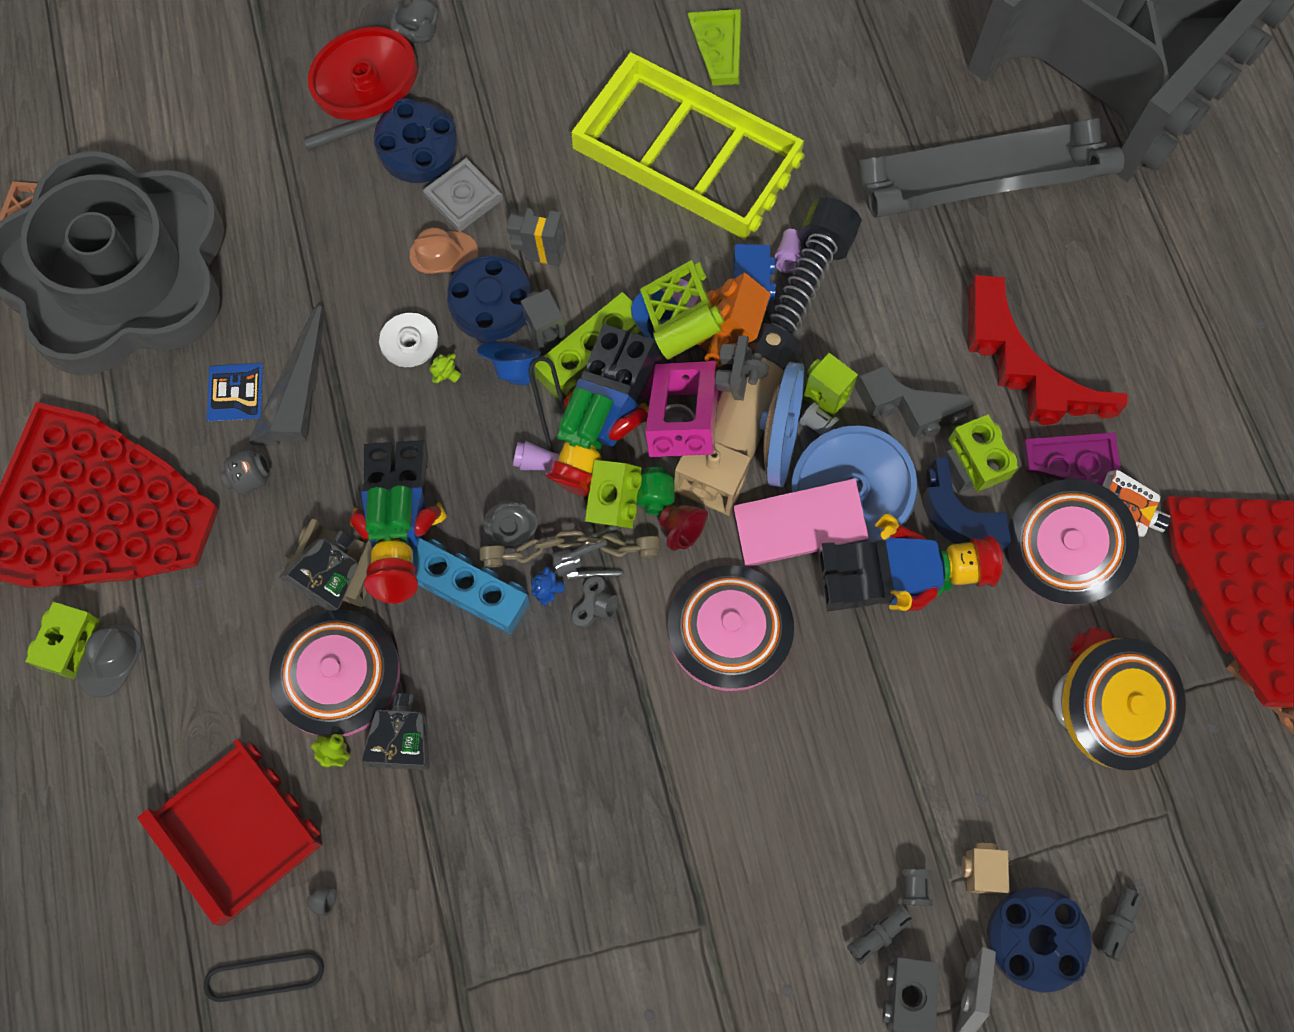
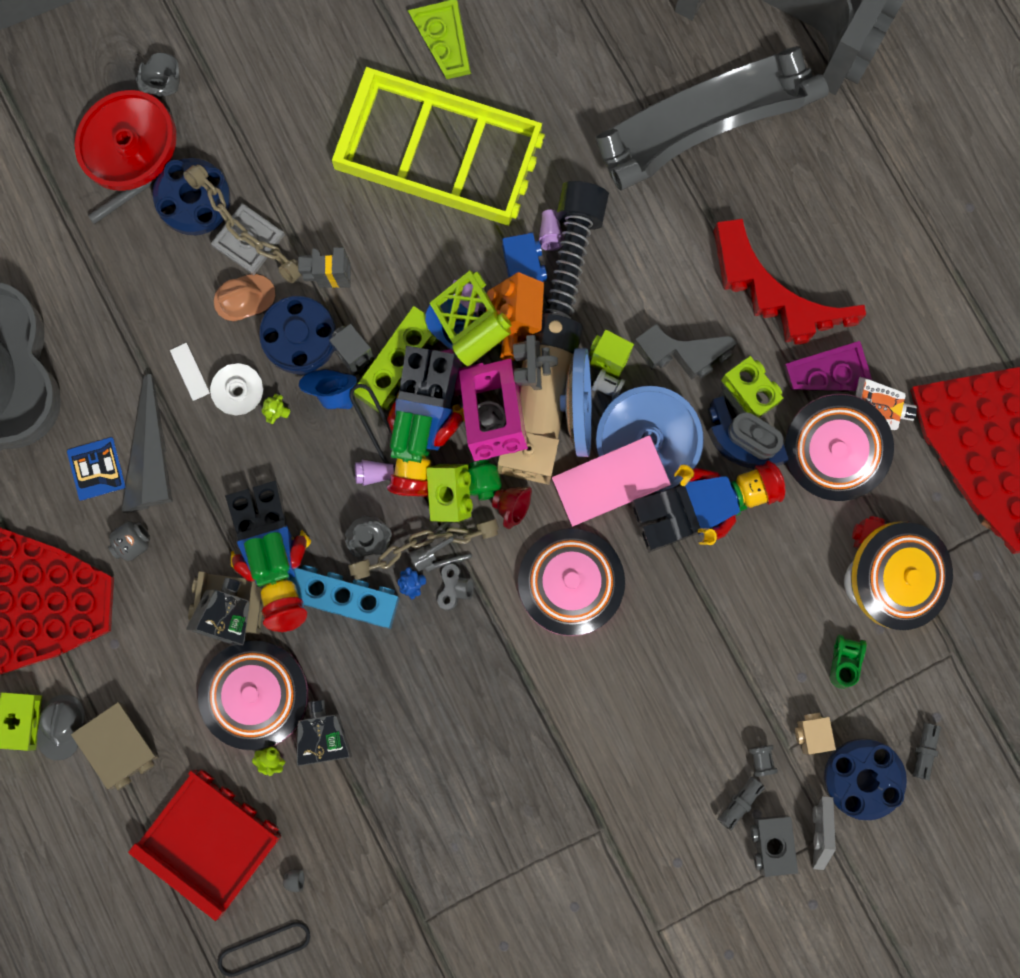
camera: 15 degrees left, 10 degrees up
(160, 694) = (114, 747): none -> dark tan panel
(364, 314) = (189, 371): none -> white sticker
(426, 117) = (196, 178): none -> dark tan piece
(978, 503) = (755, 436): none -> dark grey brick
(1043, 786) = (849, 656): none -> green piece

